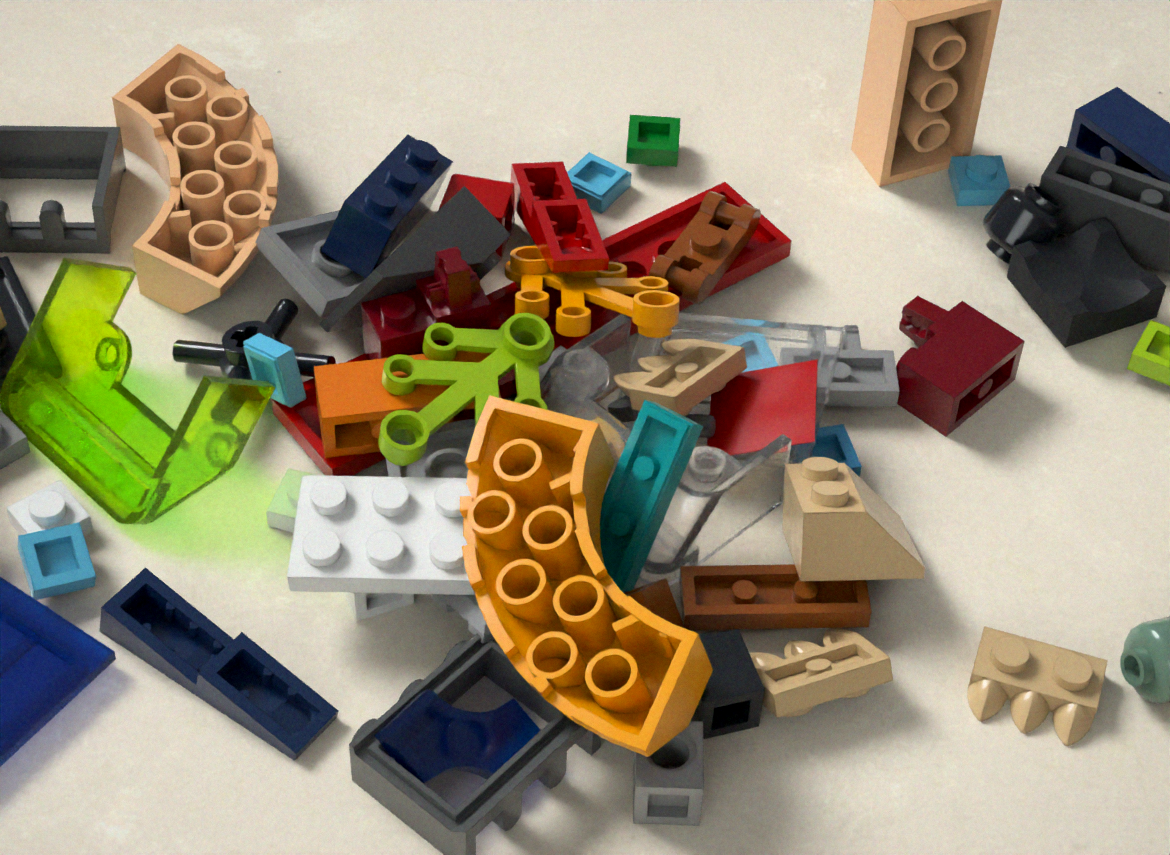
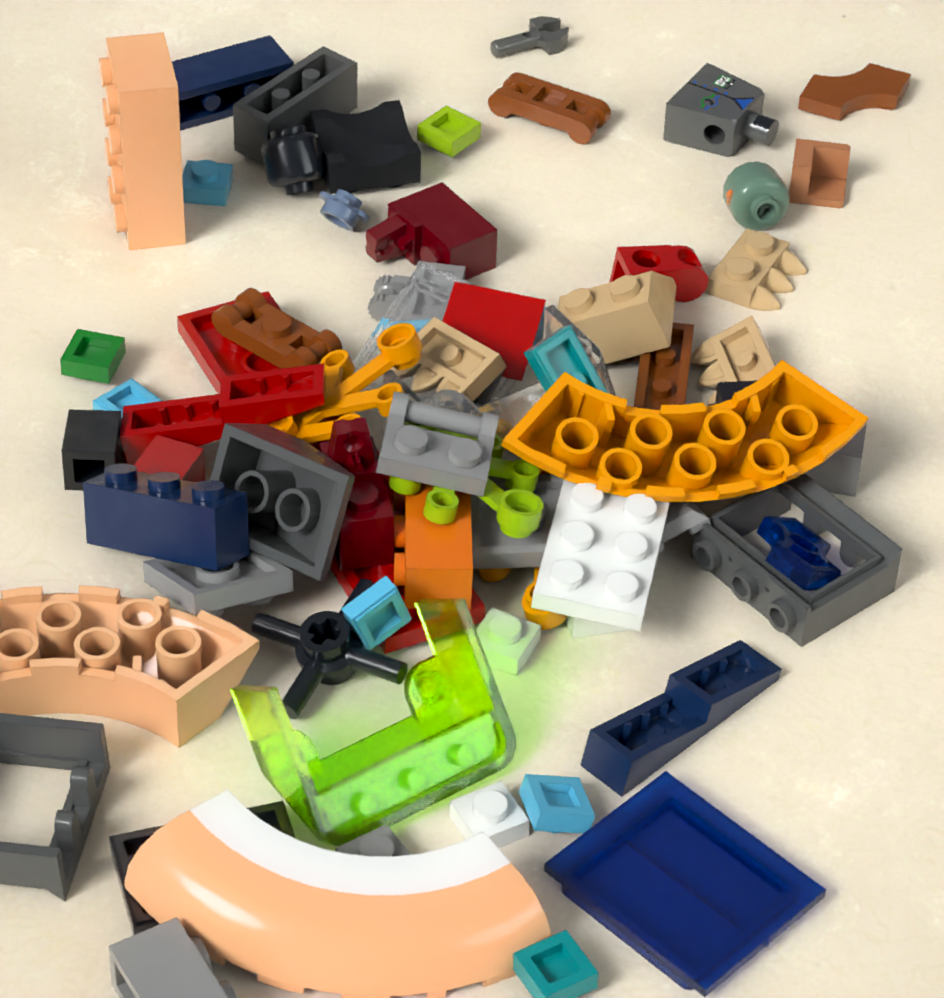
camera: 80 degrees left, 5 degrees down
(453, 346) = (436, 456): none -> light grey plate
(506, 143) = (90, 445): none -> black brick
(965, 571) = (673, 261): none -> red leg
(966, 281) = (342, 209): none -> sand blue plate

